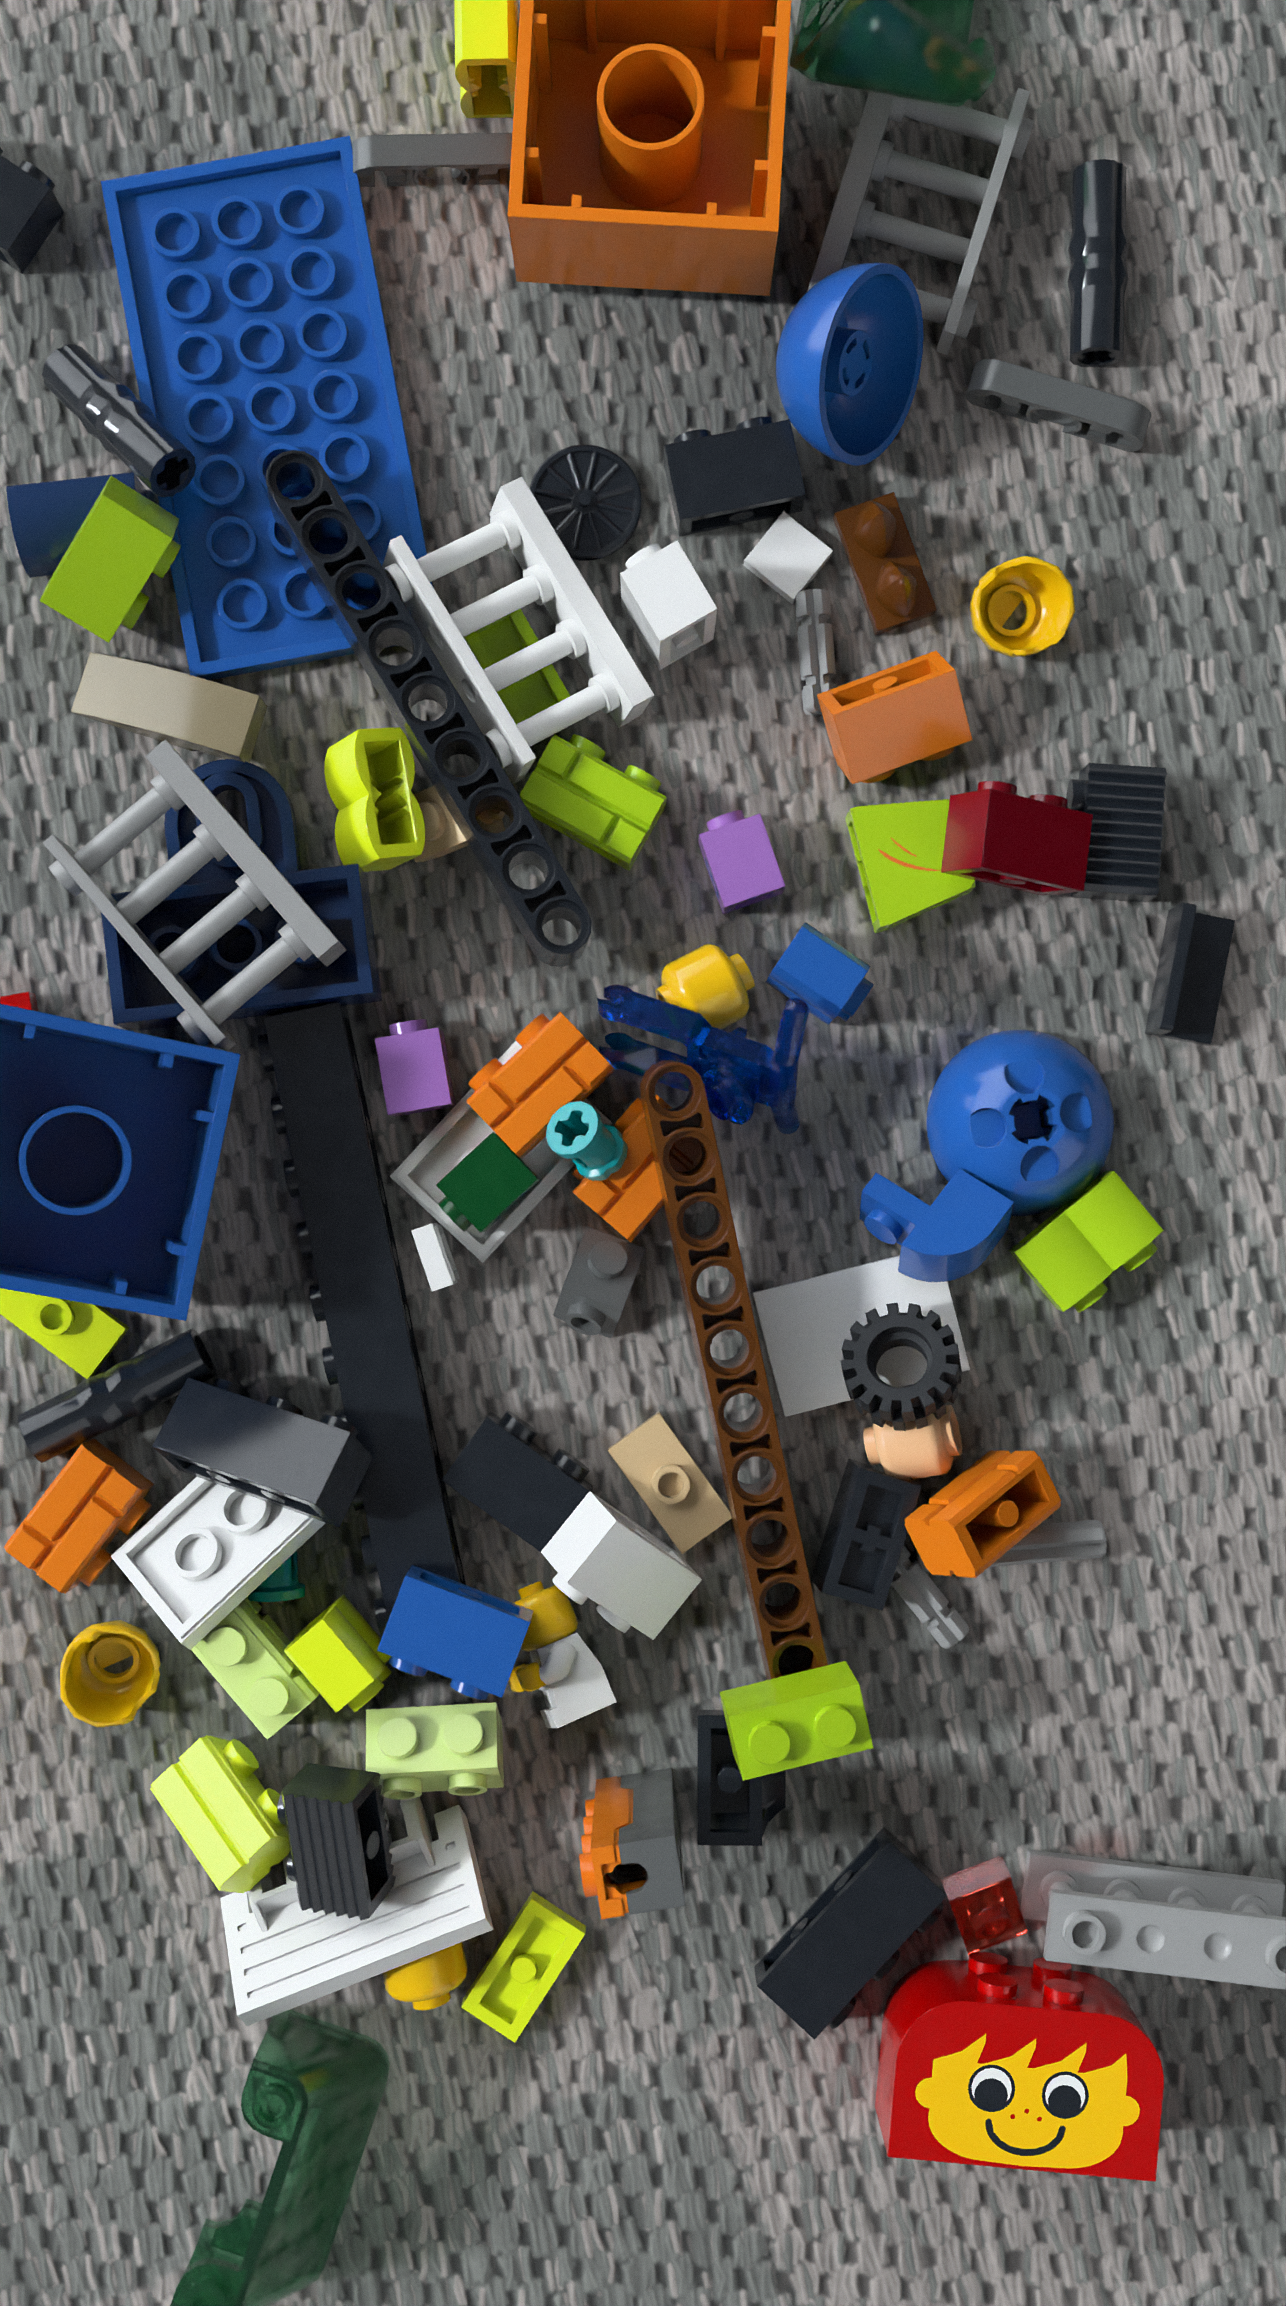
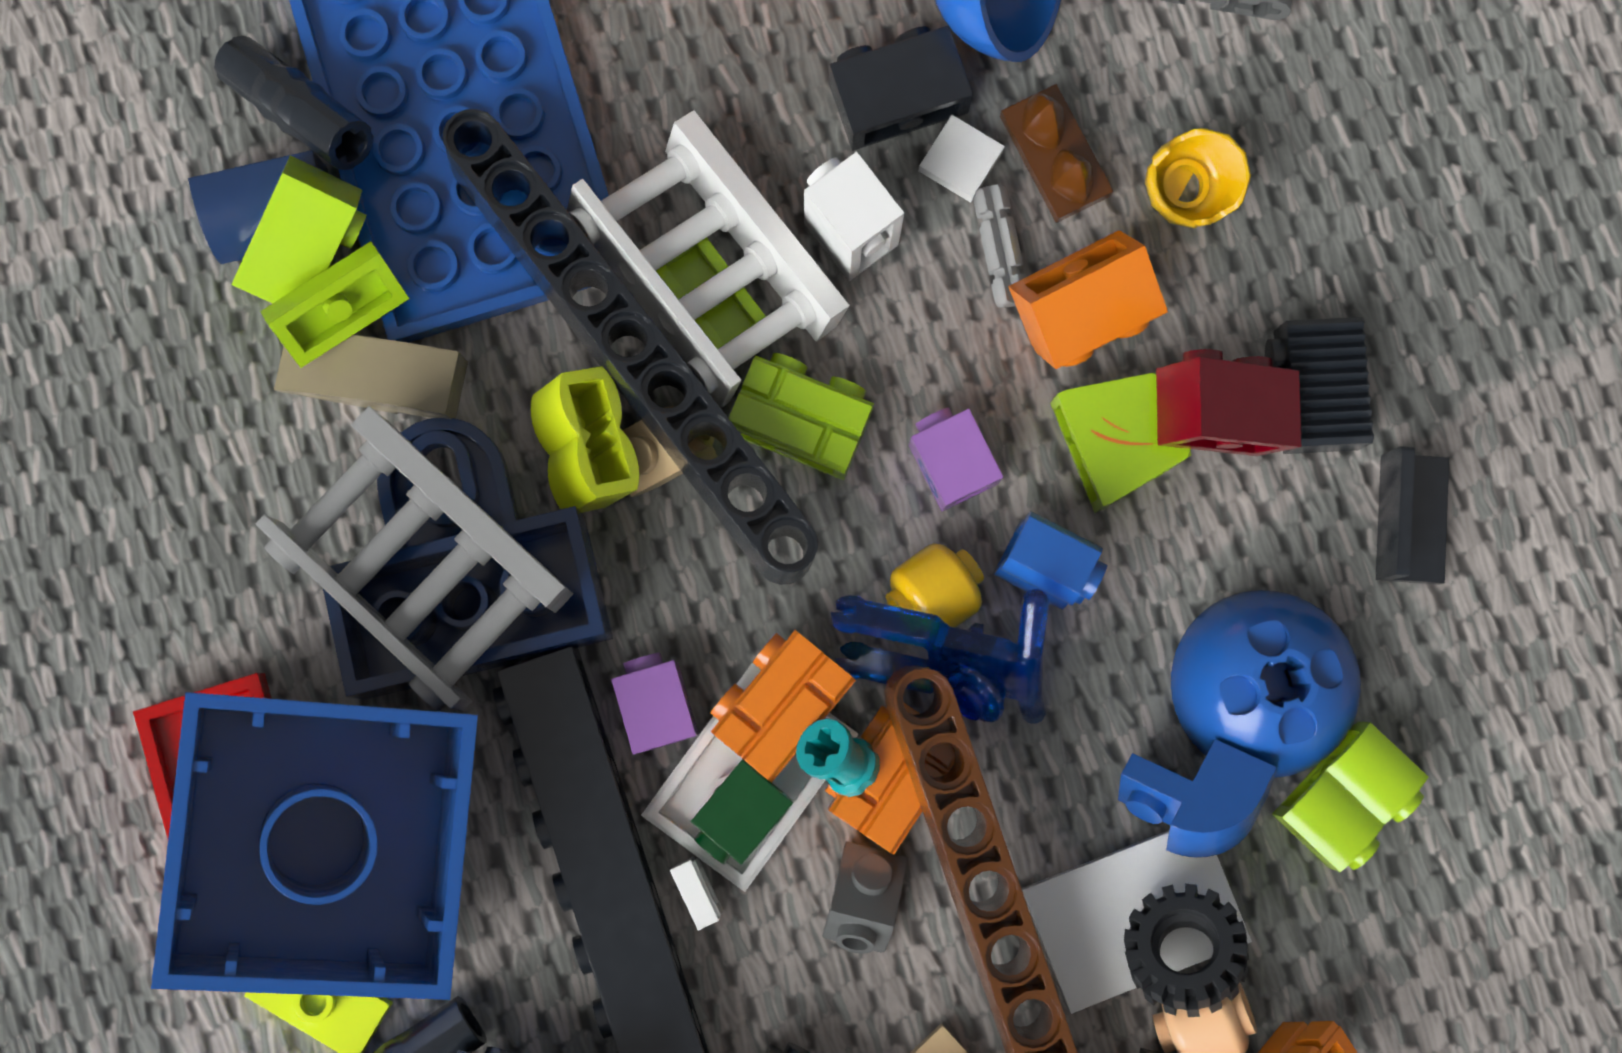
camera: 10 degrees left, 5 degrees down
(140, 633) = (334, 305): none -> lime plate
(588, 500) = (761, 125): black wheel -> none

